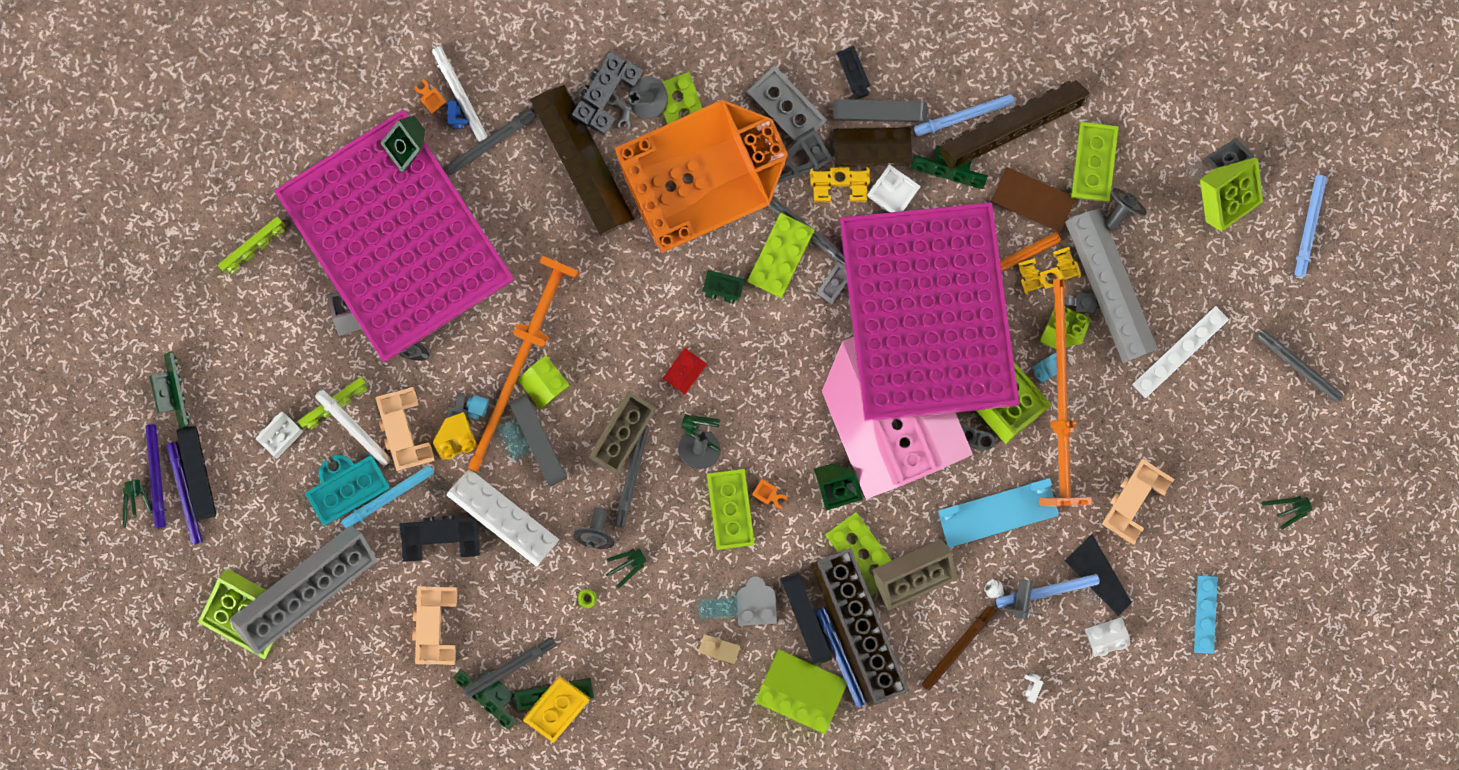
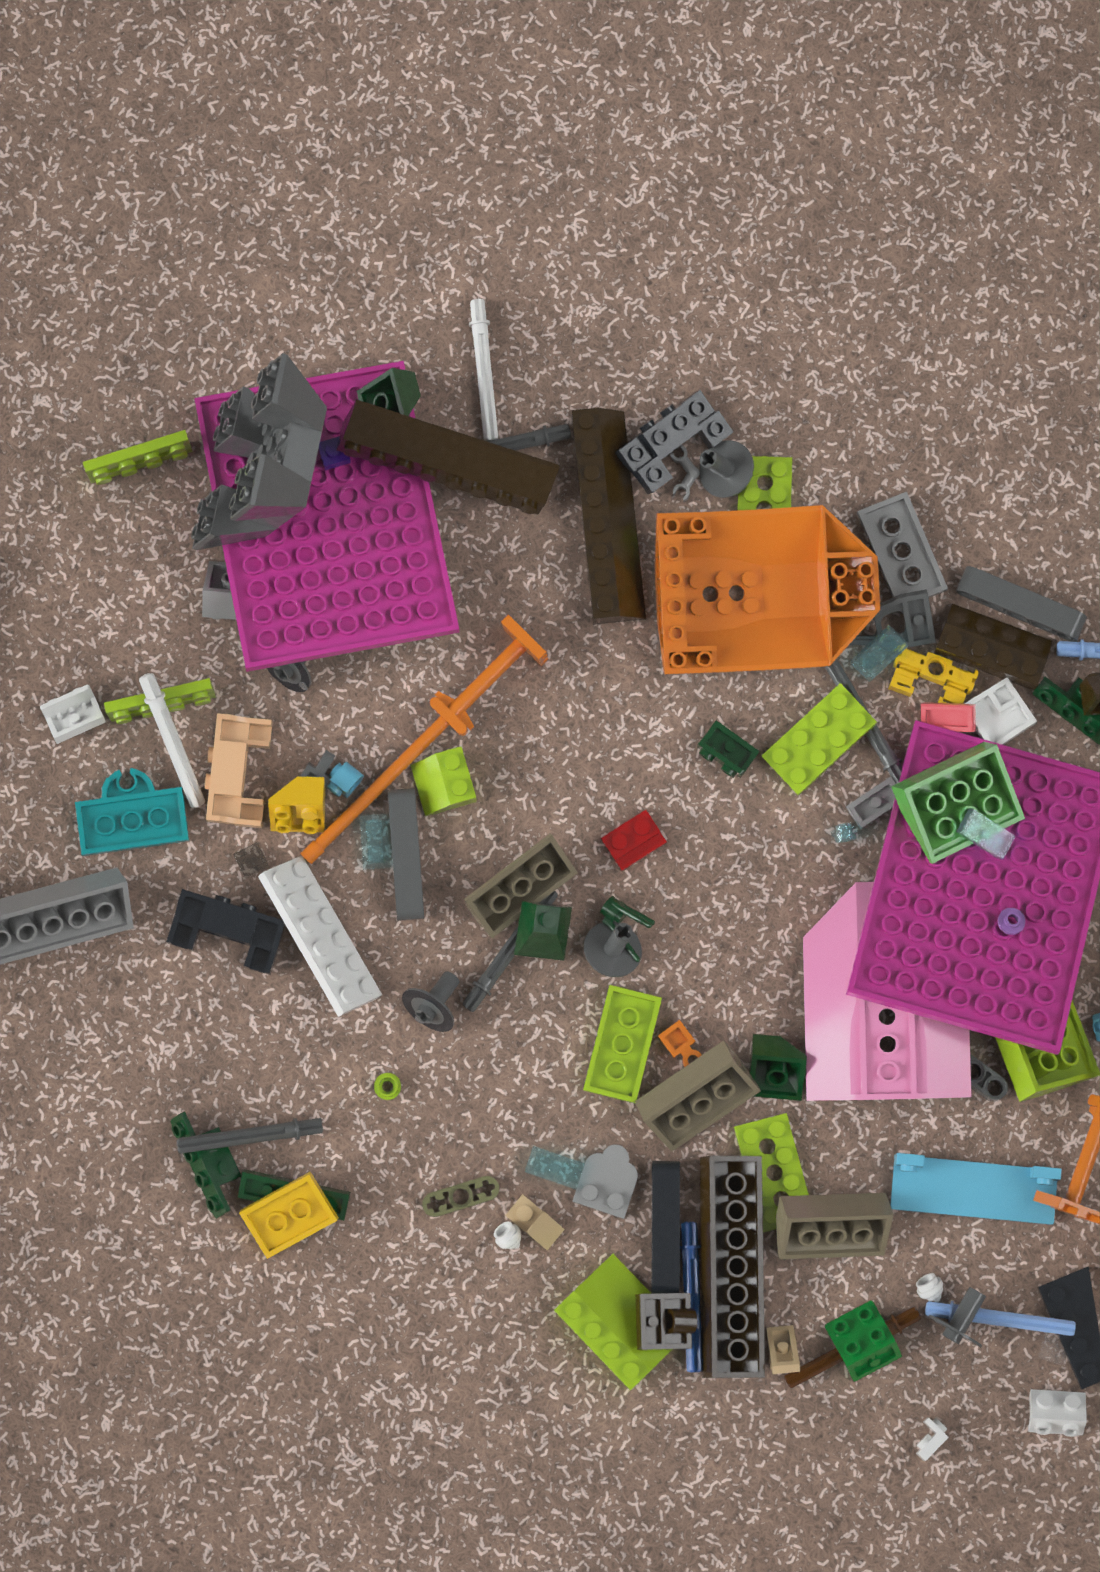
camera: 15 degrees right, 5 degrees down
(346, 199) = (281, 438): none -> dark grey slope
(384, 190) = (330, 456): none -> dark purple plate
(387, 497) = (180, 850): medium azure axle -> none
(429, 625) = (166, 1038): light nougat bracket -> none
(432, 98) = (444, 362): orange plate -> none
(453, 112) = (467, 390): blue bracket -> none
(459, 166) = (447, 457): none -> dark brown slope
(635, 558) = (472, 1060): dark green plant -> none
(648, 455) = (543, 930): none -> dark green slope
(656, 650) = (456, 1207): none -> olive beam
(705, 665) = (508, 1236): none -> white plate
(793, 524) = (697, 1096): none -> dark tan slope
(798, 182) = (879, 653): none -> clear light blue plate
(822, 311) = (844, 832): none -> clear light blue plate
(829, 680) = (665, 1321): none -> plate
(854, 71) = (1007, 540): black hinge -> none
(861, 205) = (950, 716): none -> coral tile
(889, 262) = (941, 795): none -> bright green slope
(913, 668) = (782, 1349): none -> tan slope
(915, 277) = (986, 834): none -> clear light blue plate
(954, 334) = (1008, 928): none -> medium lavender plate
(963, 640) = (863, 1340): none -> green bracket

